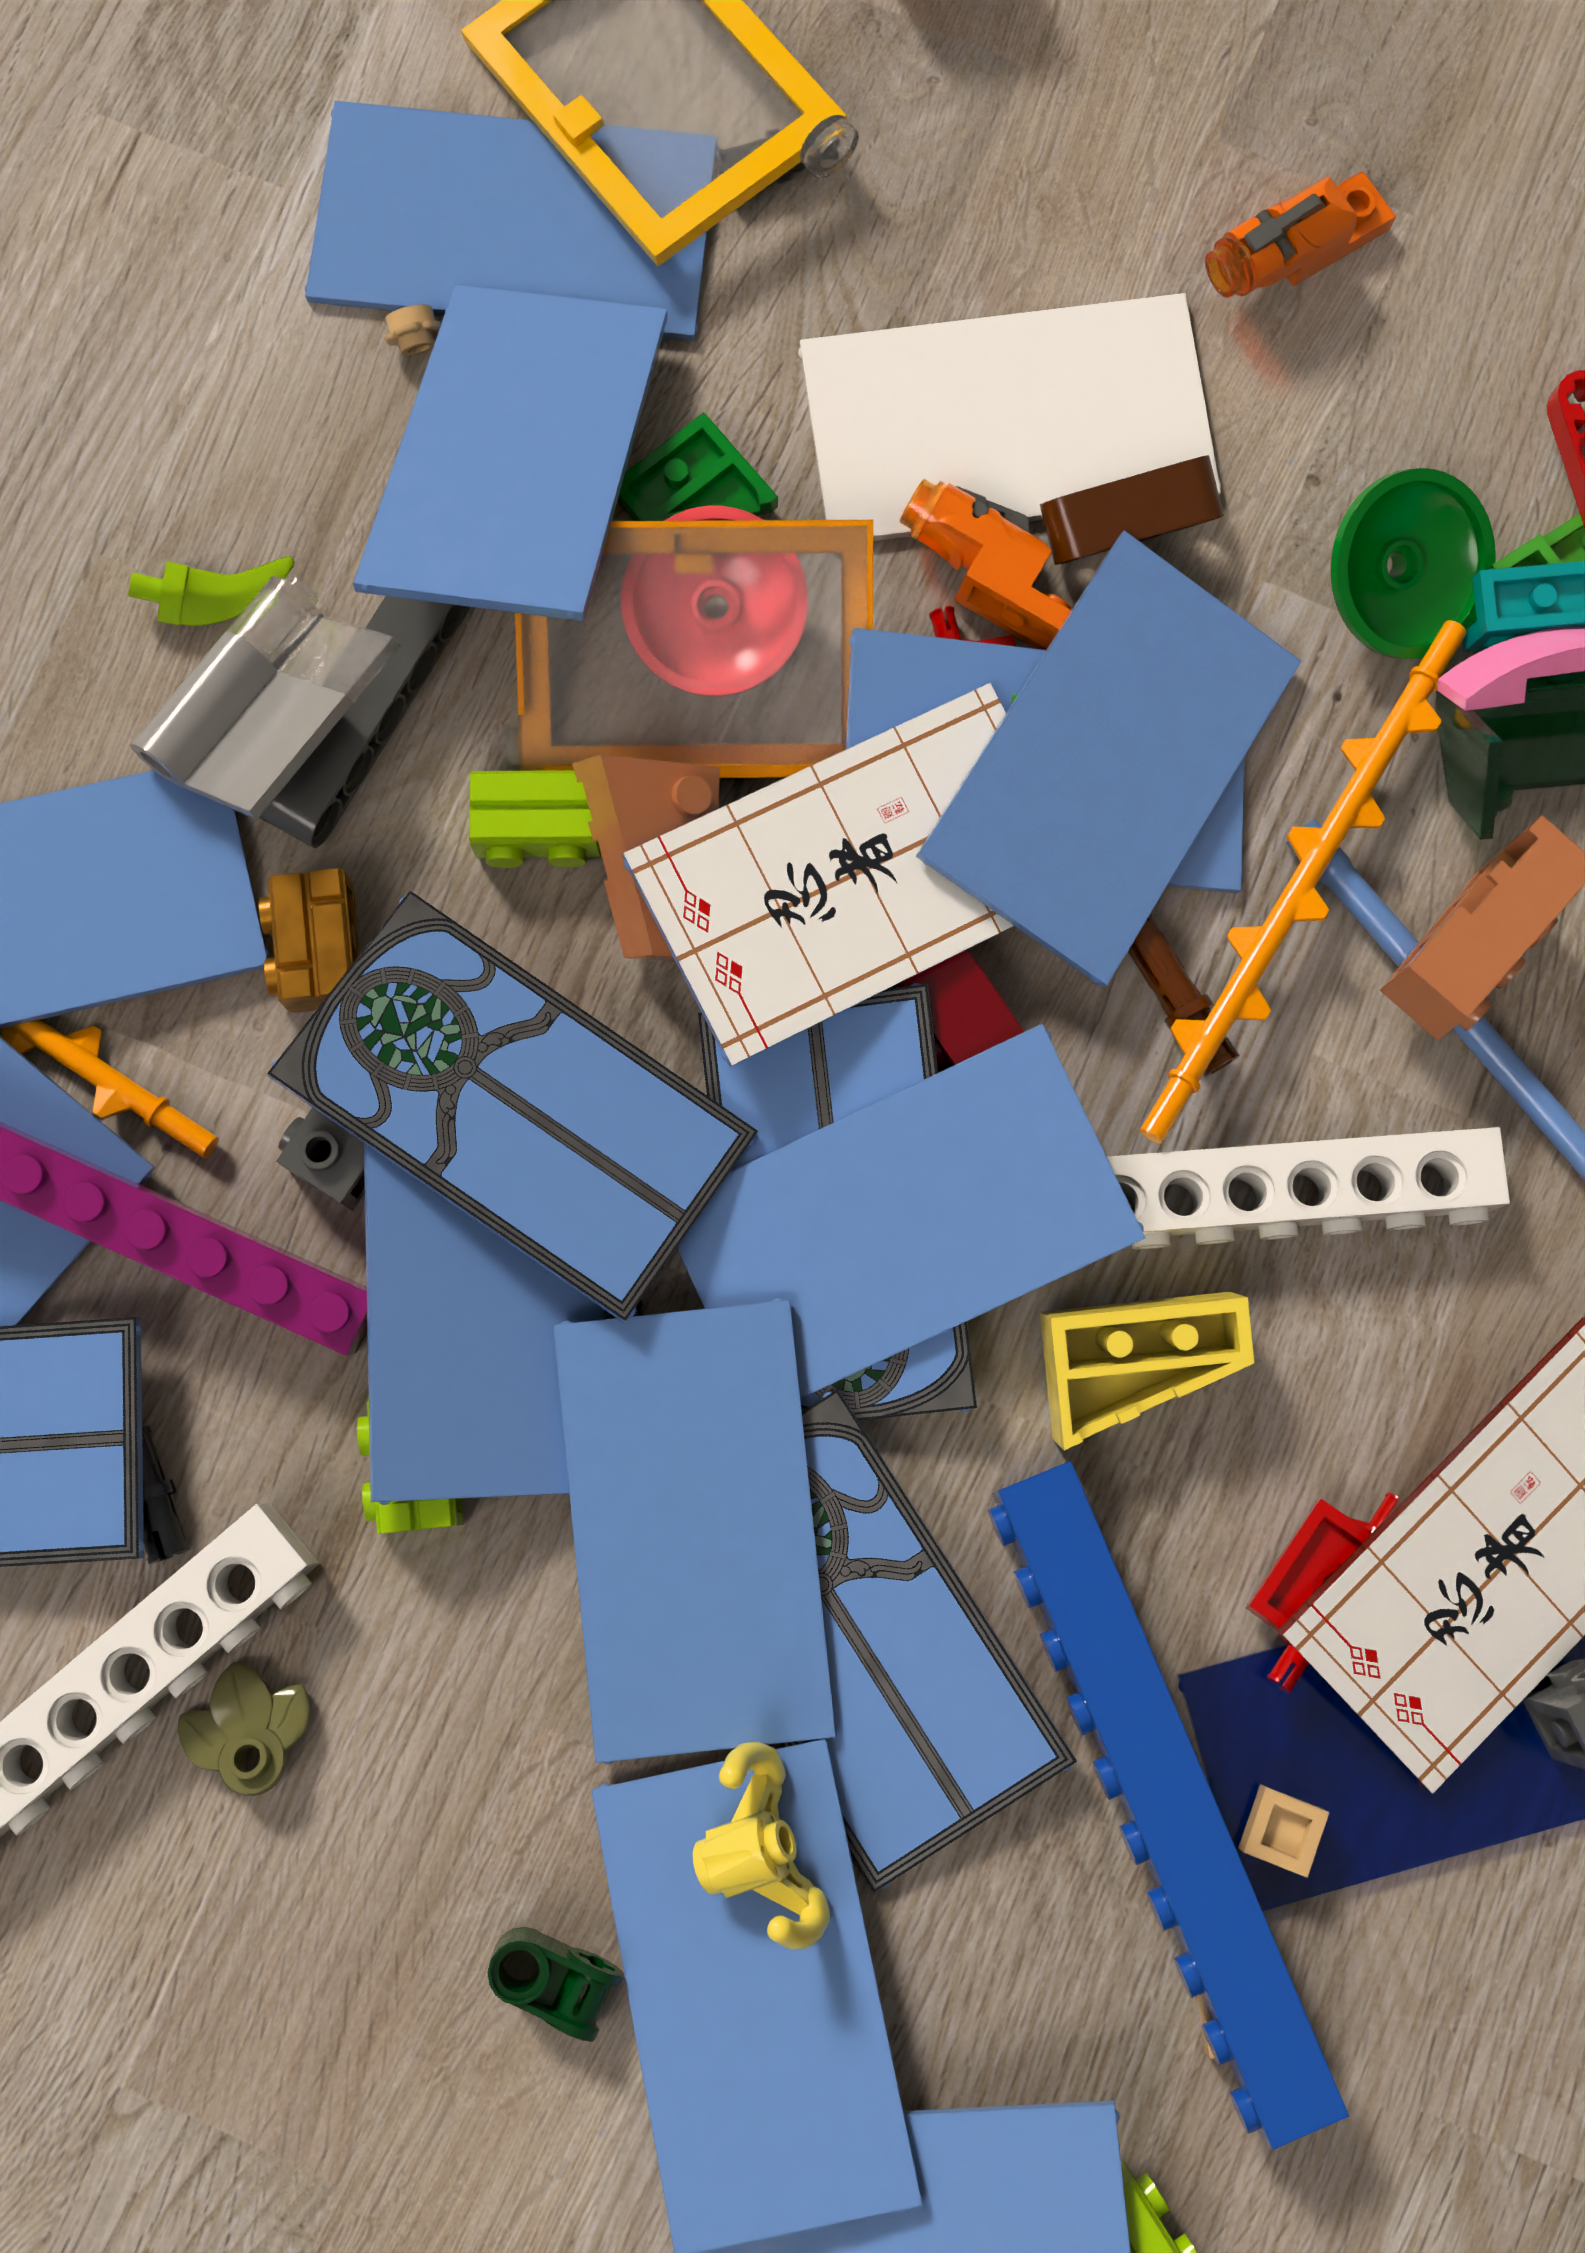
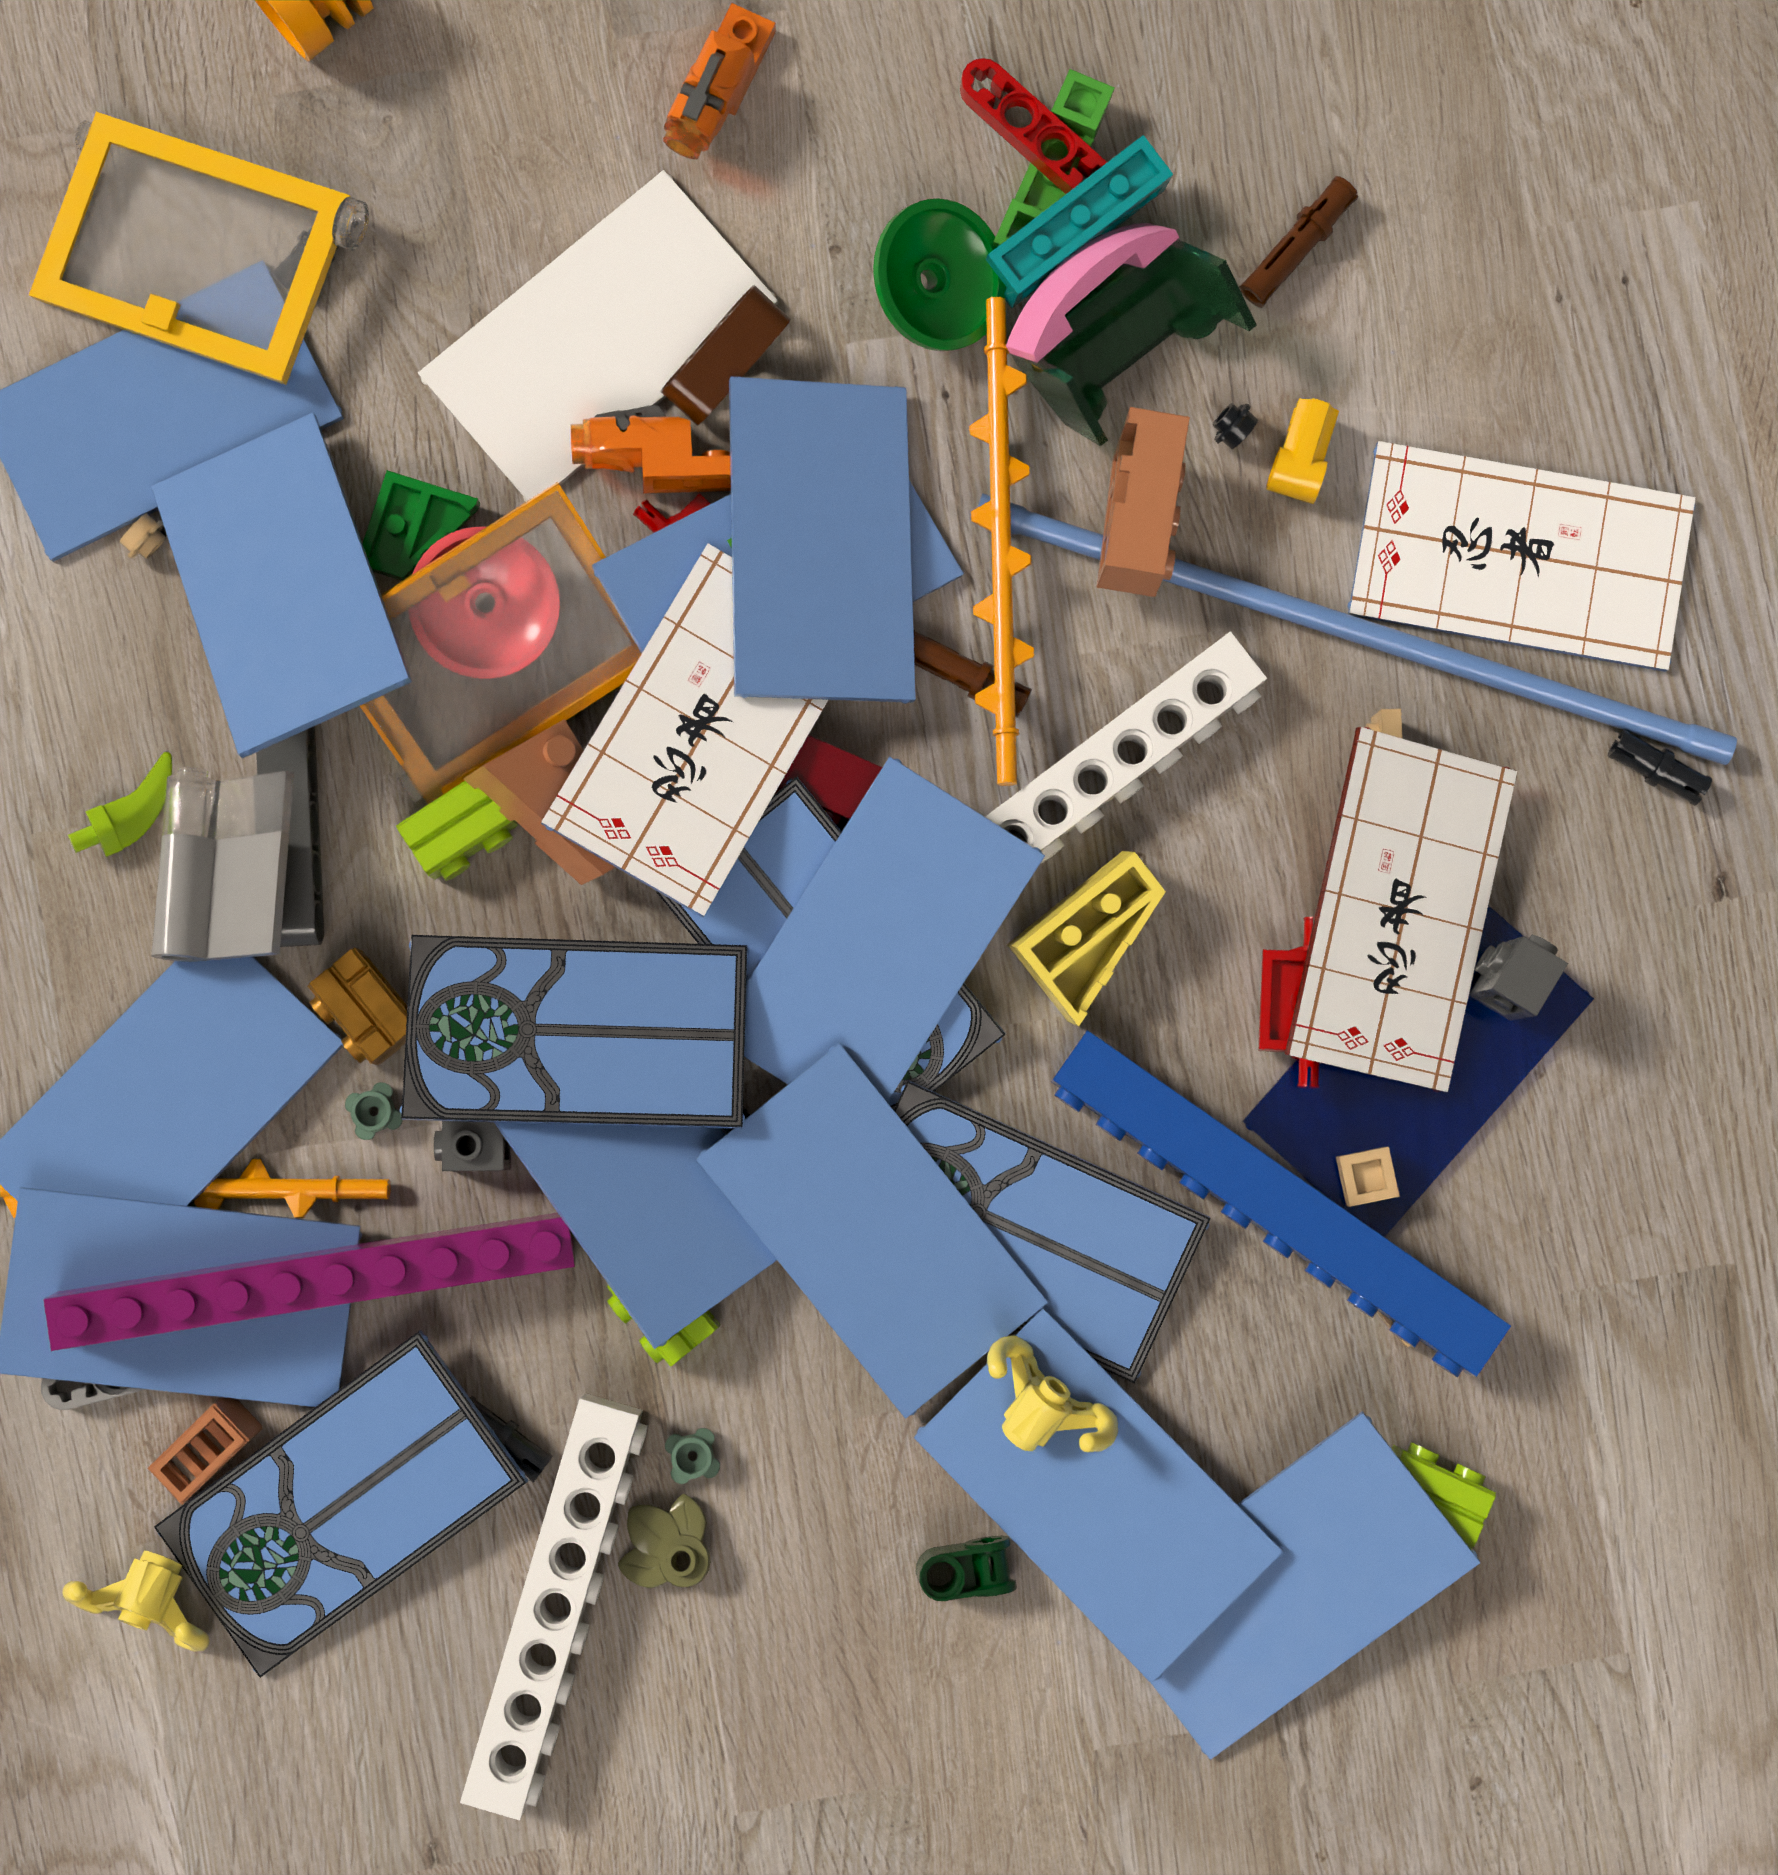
camera: 35 degrees left, 5 degrees up
(241, 1040) = (360, 1105): none -> sand green plate
(320, 1655) = (683, 1467): none -> sand green plate

